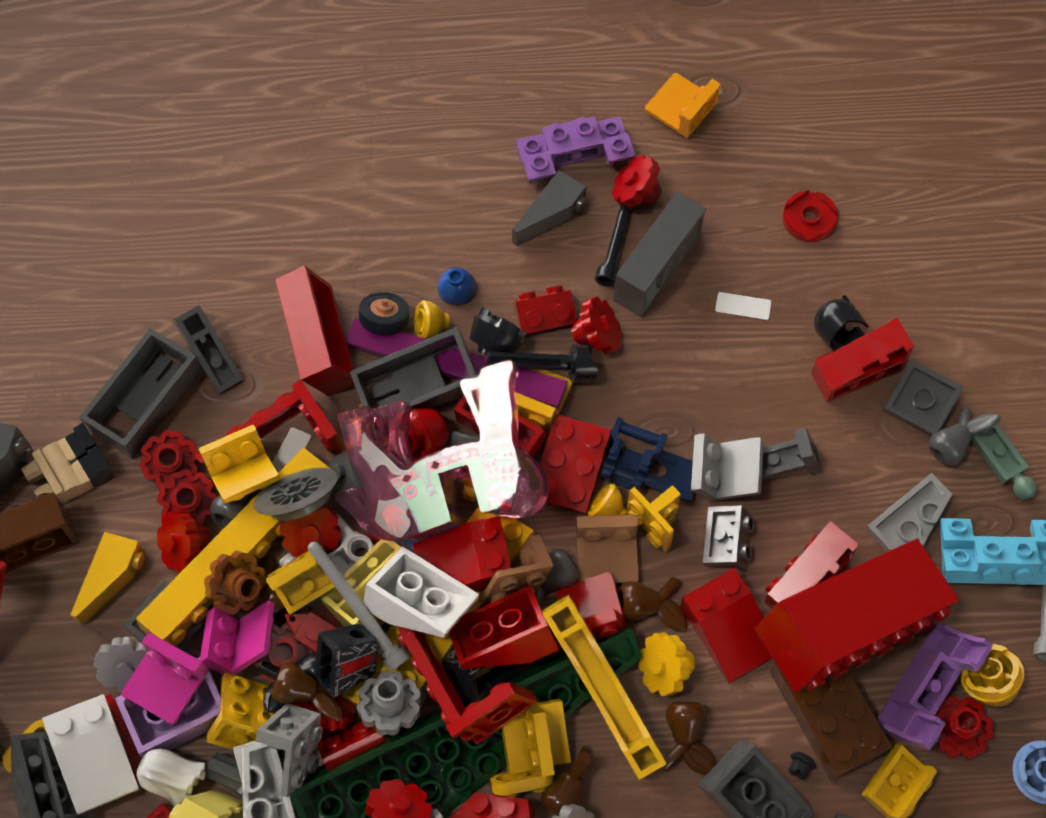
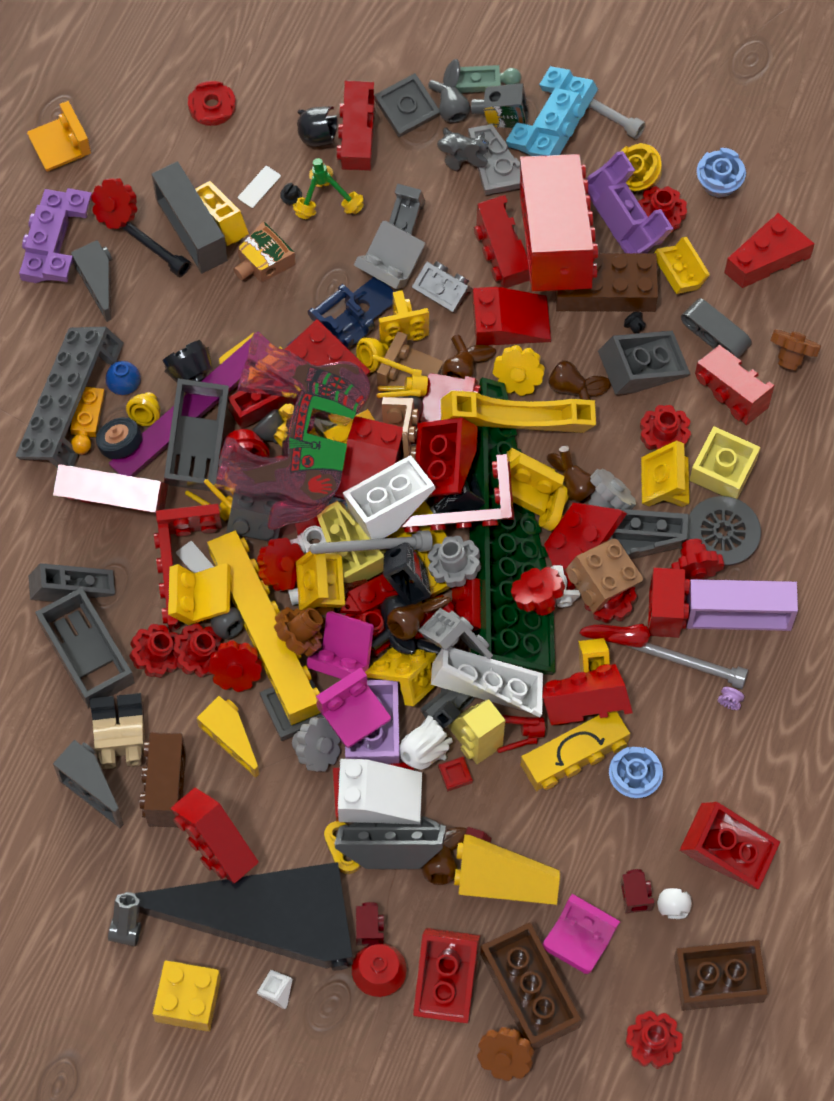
camera: 65 degrees left, 0 degrees up
(212, 781) = (450, 712): none -> black piece
(297, 494) = (253, 551): dark grey piece -> none
(394, 274) = (86, 419): none -> light orange plate
(412, 238) = (63, 391): none -> dark grey bracket
(545, 310) = (182, 321): red bracket -> none
(577, 363) = (245, 319): black piece -> none
(586, 562) = (414, 385): none -> yellow plant
(598, 326) = (223, 291): red plant -> none
(662, 345) = (263, 255): none -> torso
(685, 282) = (224, 213): none -> yellow slope
(750, 339) = (290, 194): none -> black piece
(781, 353) = (322, 176): none -> plant
(900, 477) = (462, 148): none -> dark grey animal
(980, 495) = (503, 105): none -> dark grey torso

